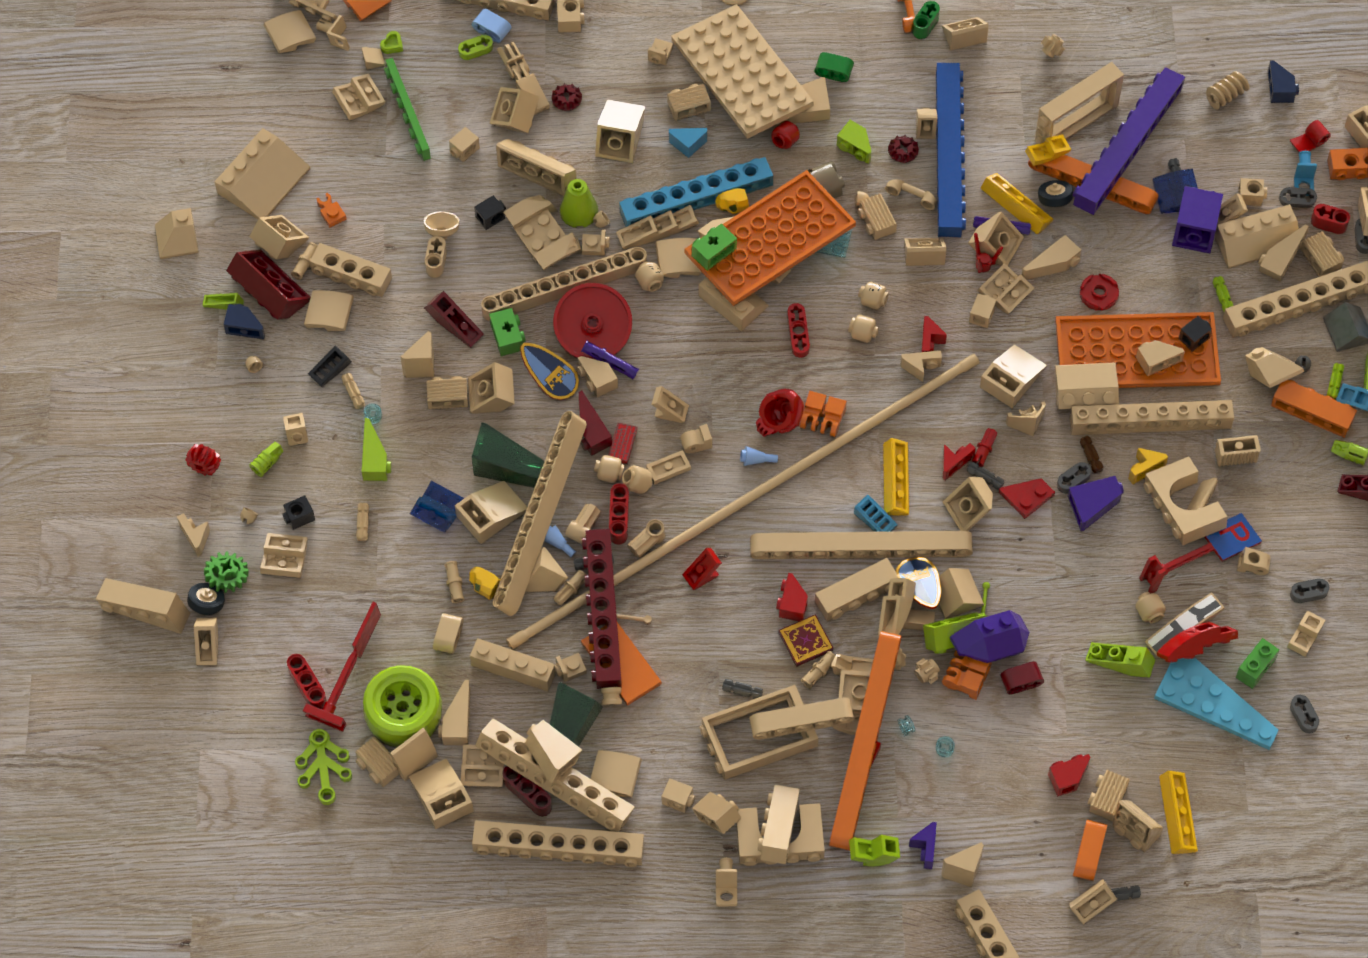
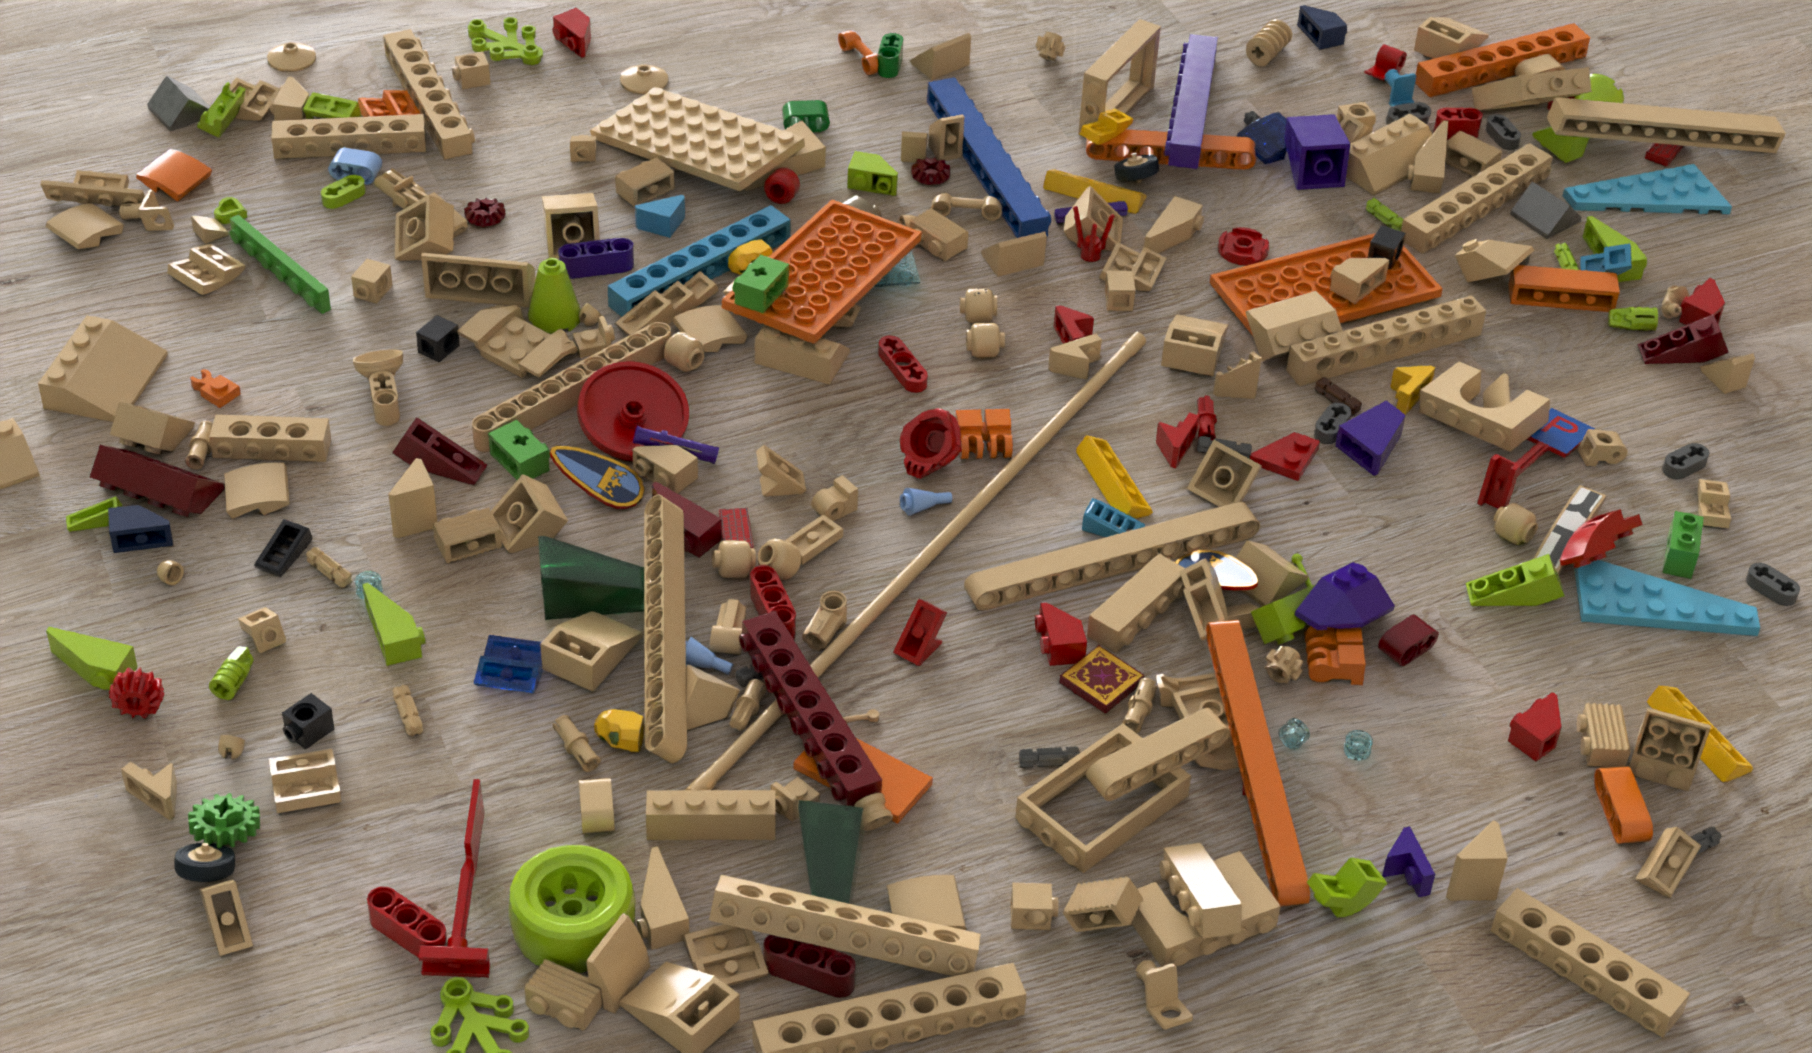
camera: 25 degrees left, 20 degrees down
(144, 604) = (108, 893): tan wedge -> none
(191, 425) = (91, 657): none -> lime slope
(551, 750) = (828, 886): slope -> none
(618, 162) = (597, 257): none -> dark purple beam
(900, 119) = (913, 146): none -> tan slope
(1237, 450) = (1509, 345): tan brick -> none

